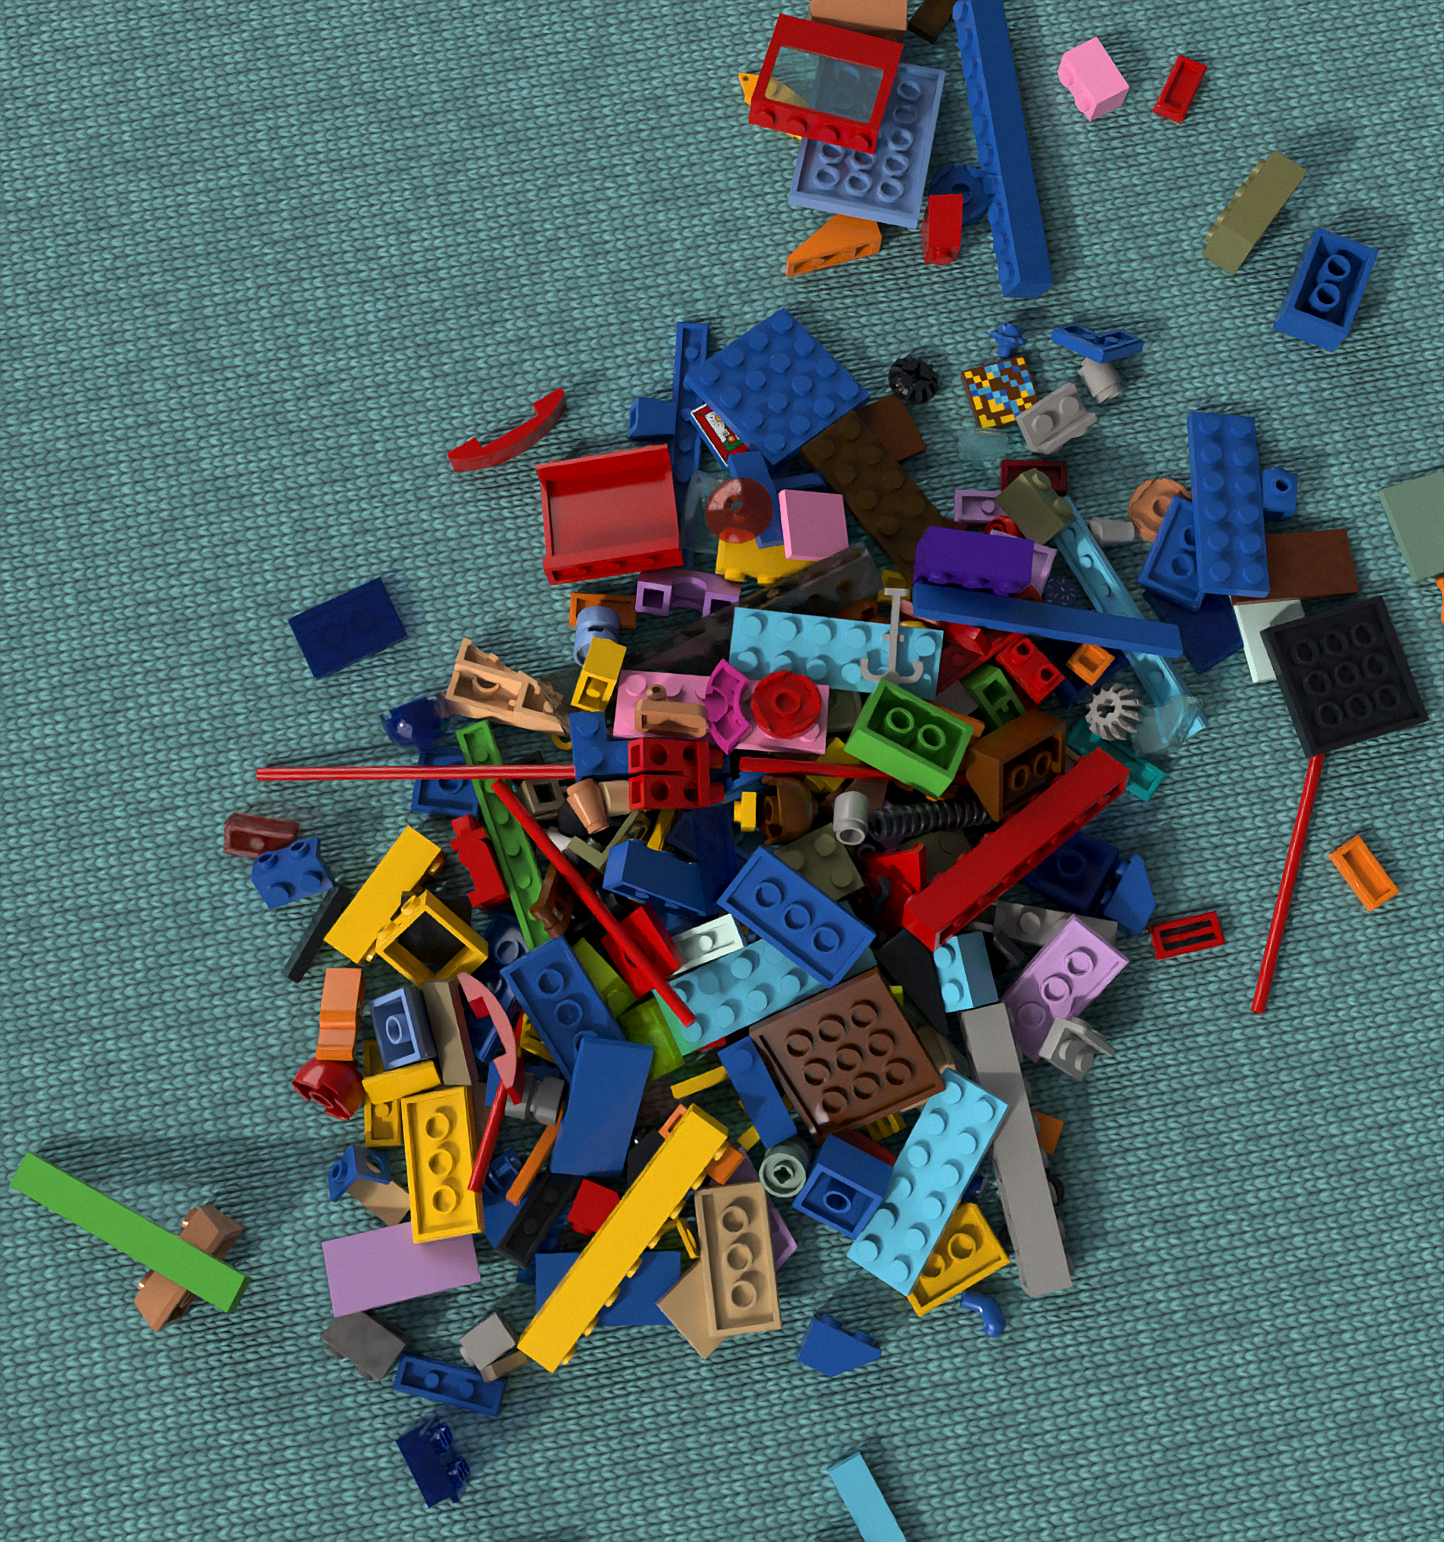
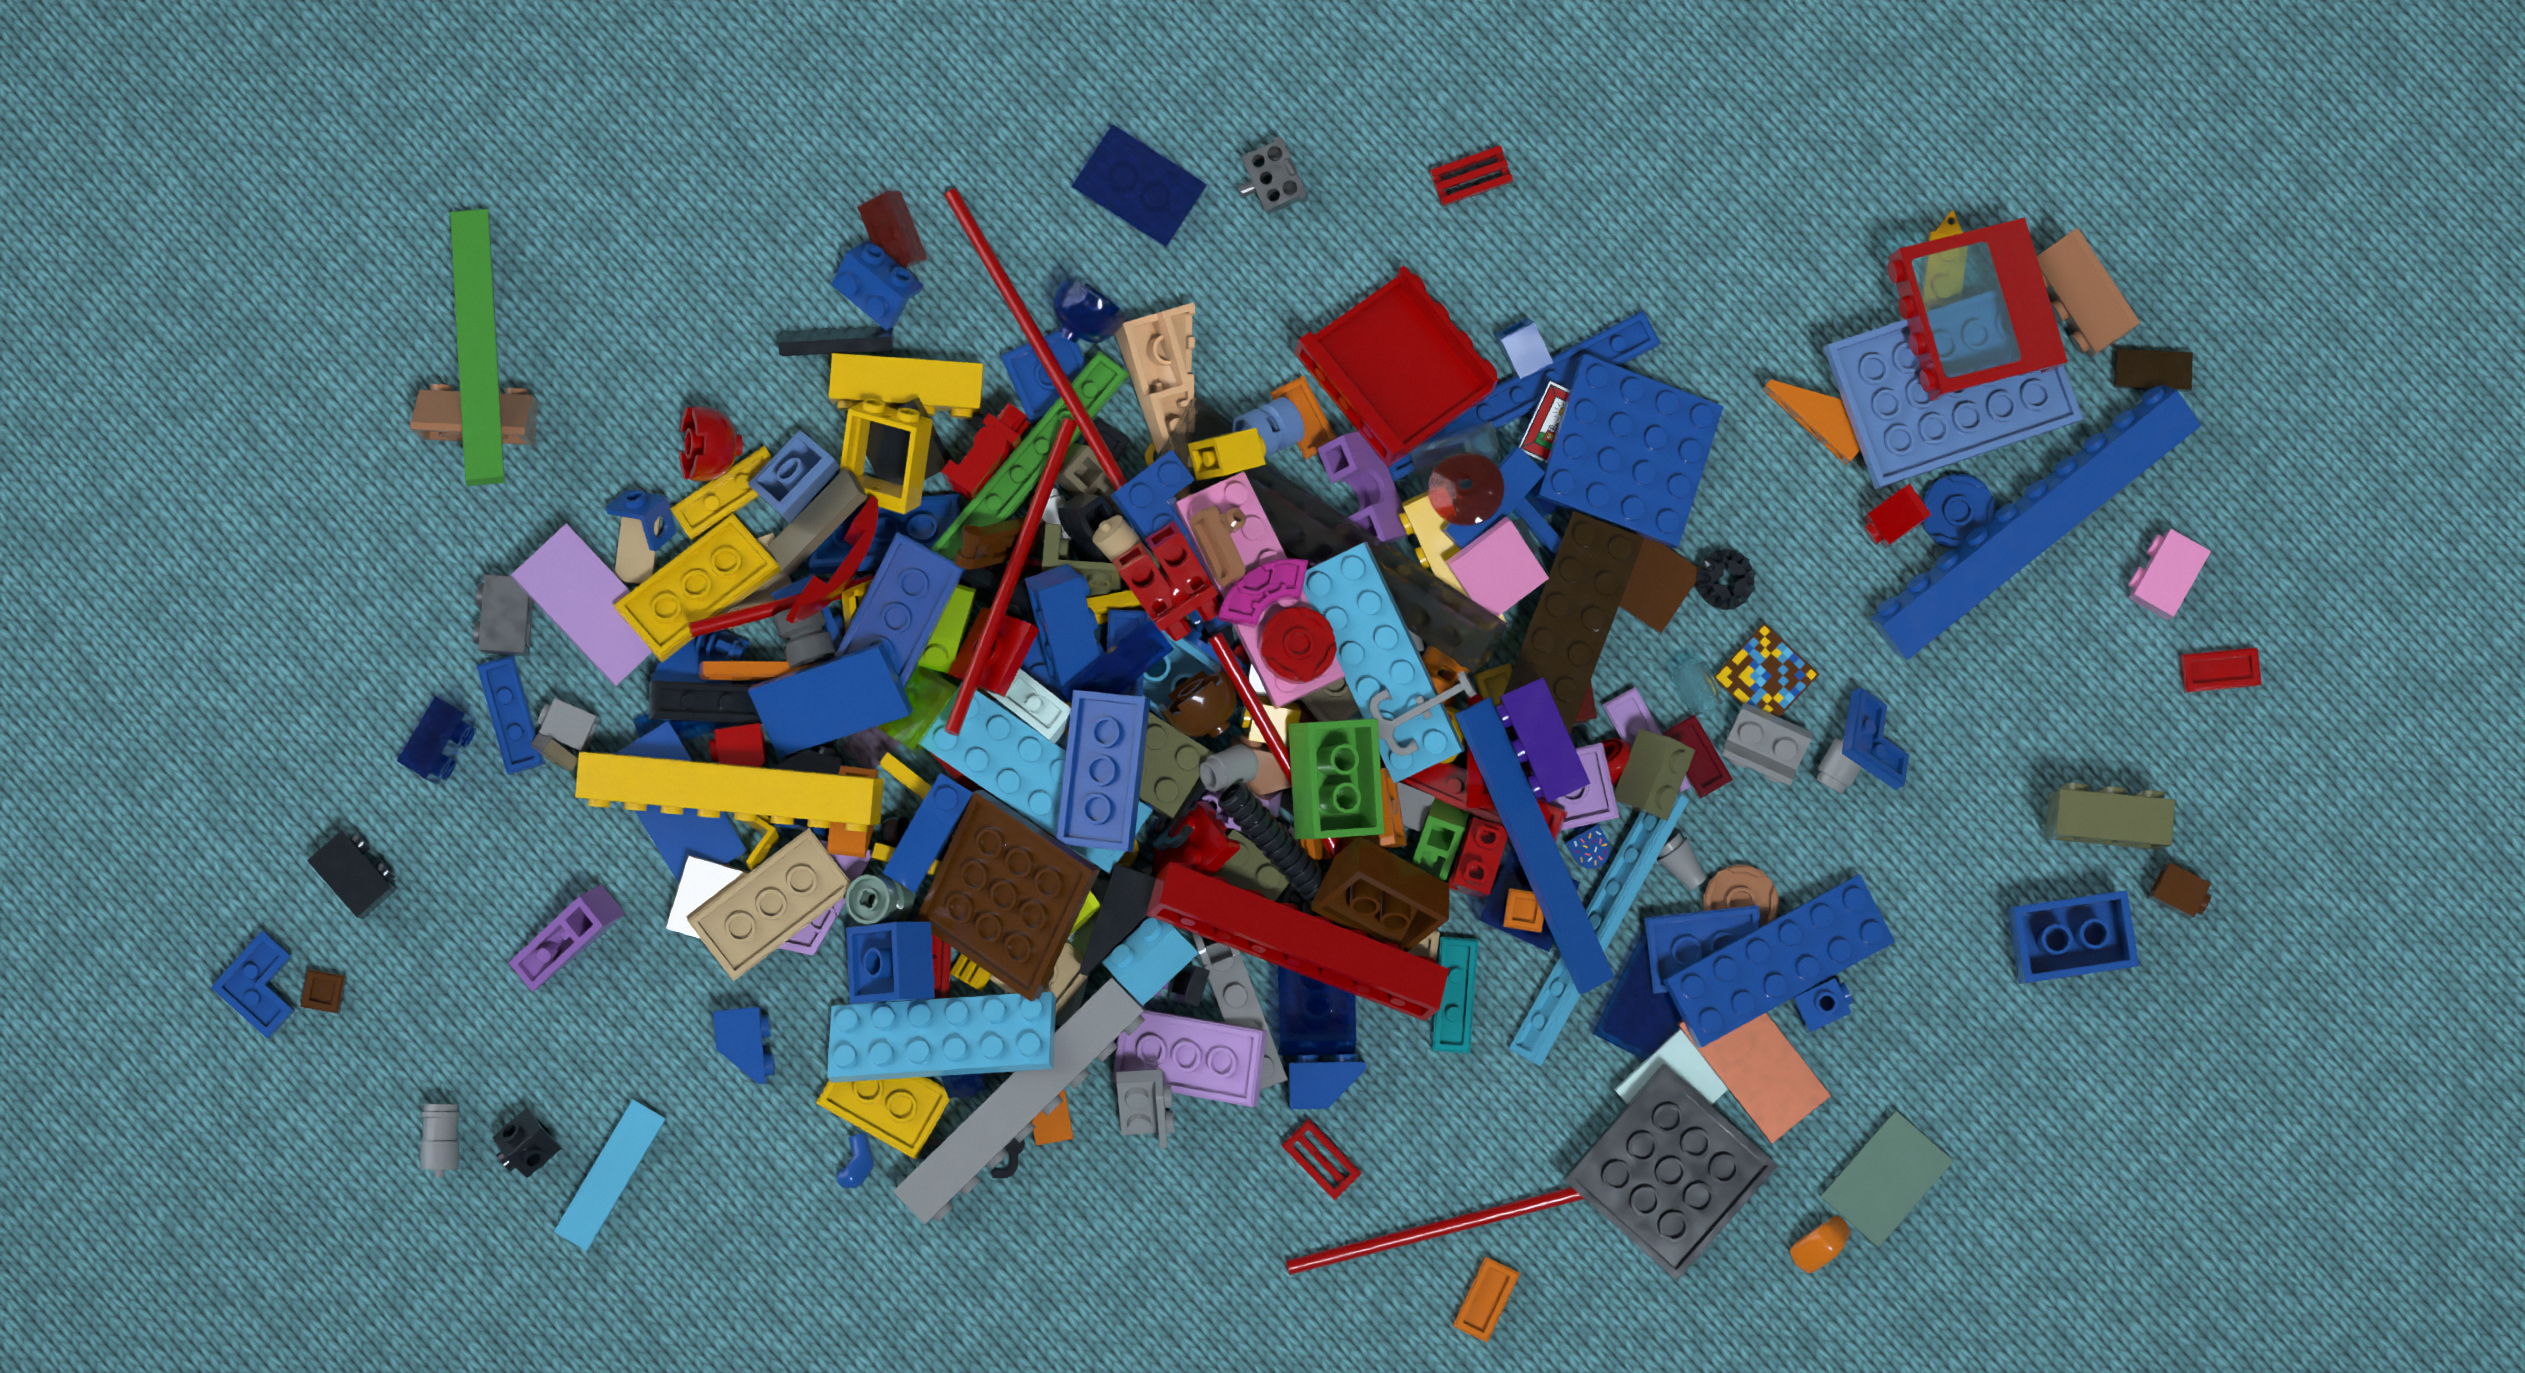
camera: 65 degrees right, 5 degrees up
(340, 1013) = (775, 411): orange piece -> none
(402, 1082) = (747, 506): yellow slope -> none
(405, 515) = (1284, 173): none -> flat silver piece
(473, 456) = (1467, 243): red slope -> none
(504, 359) = (1501, 165): none -> red tile
(588, 805) = (1093, 520): nougat cone -> none
(662, 1448) = (566, 937): none -> medium lavender slope
(735, 1119) = (893, 830): none -> black hinge
(746, 812) = (1179, 668): yellow plate -> none
(1008, 337) = (1828, 648): blue plant -> none
(1114, 711) = (1493, 964): light grey gear -> none
(1165, 726) = (1508, 1022): clear light blue slope -> none
(1328, 202) = (2180, 891): none -> reddish brown brick

